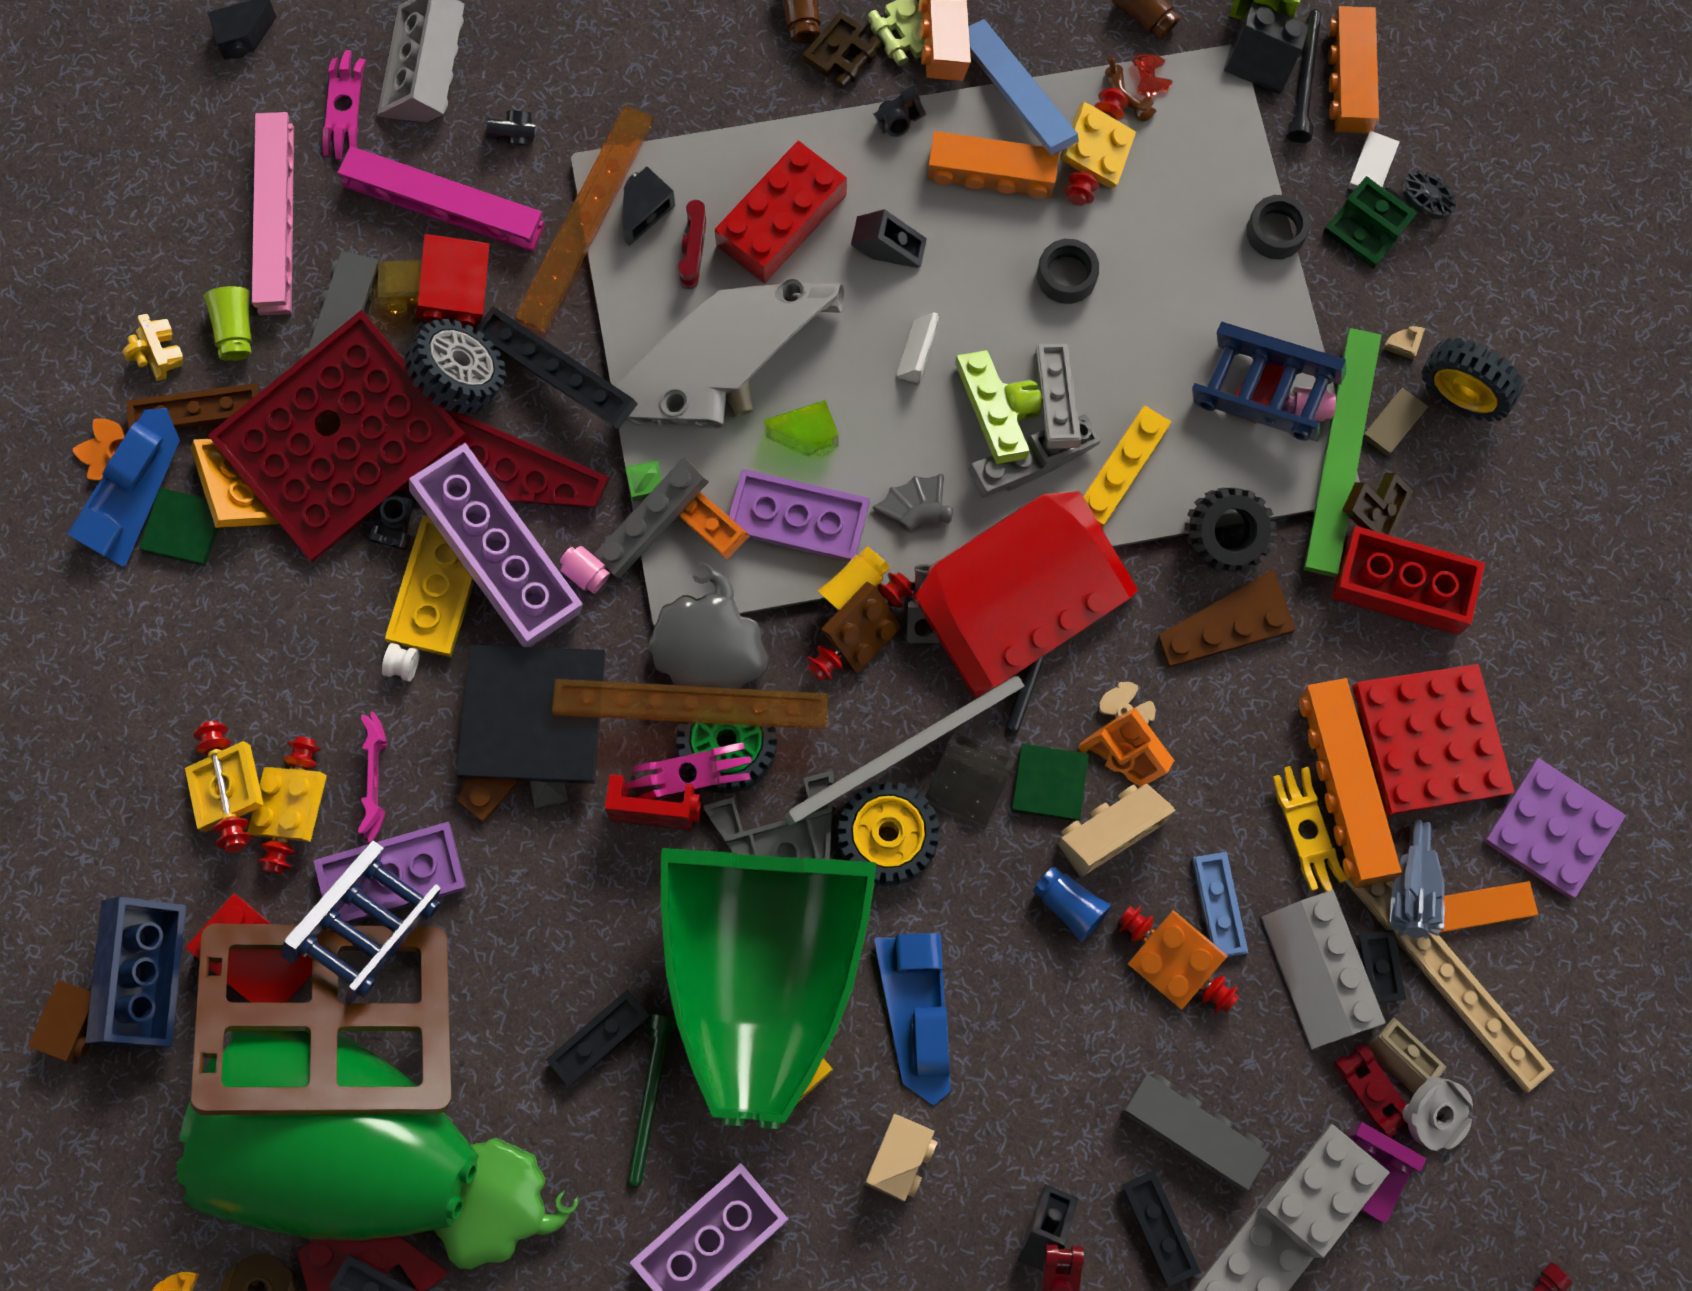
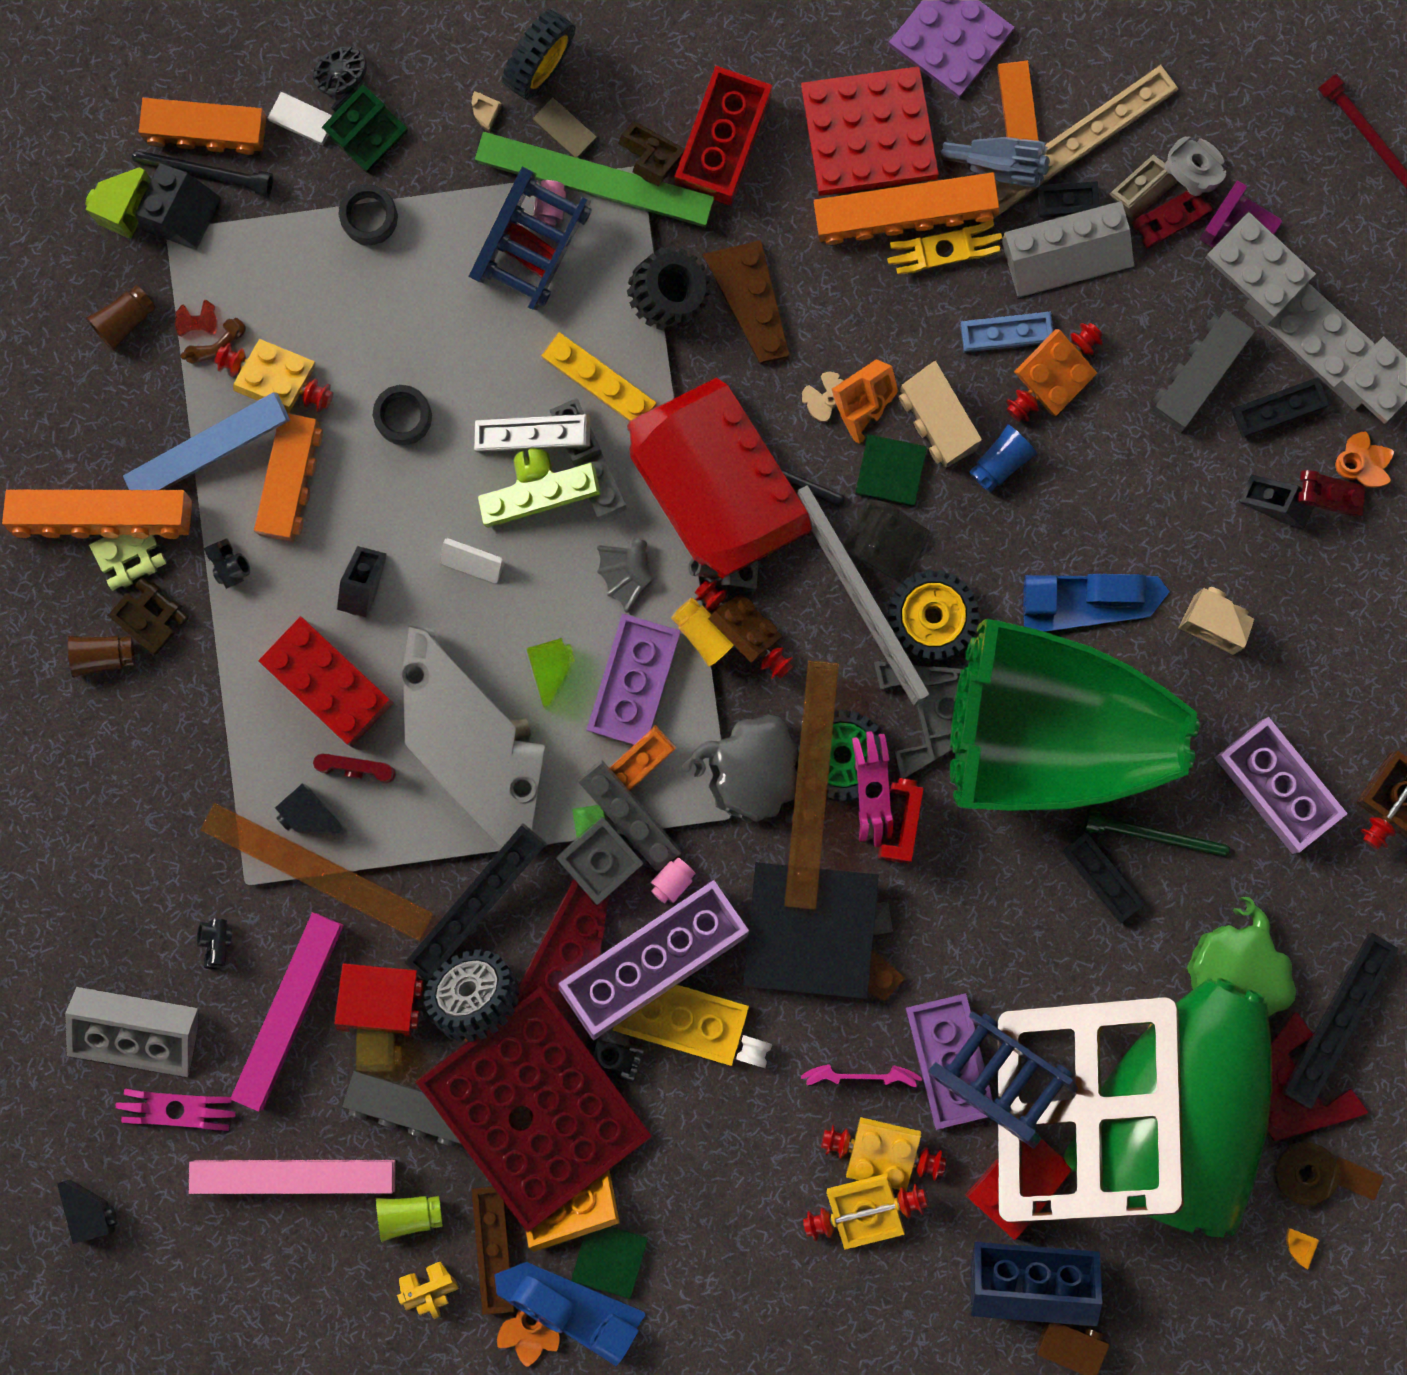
camera: 80 degrees left, 10 degrees up
(601, 486) = (599, 860): none -> dark grey plate

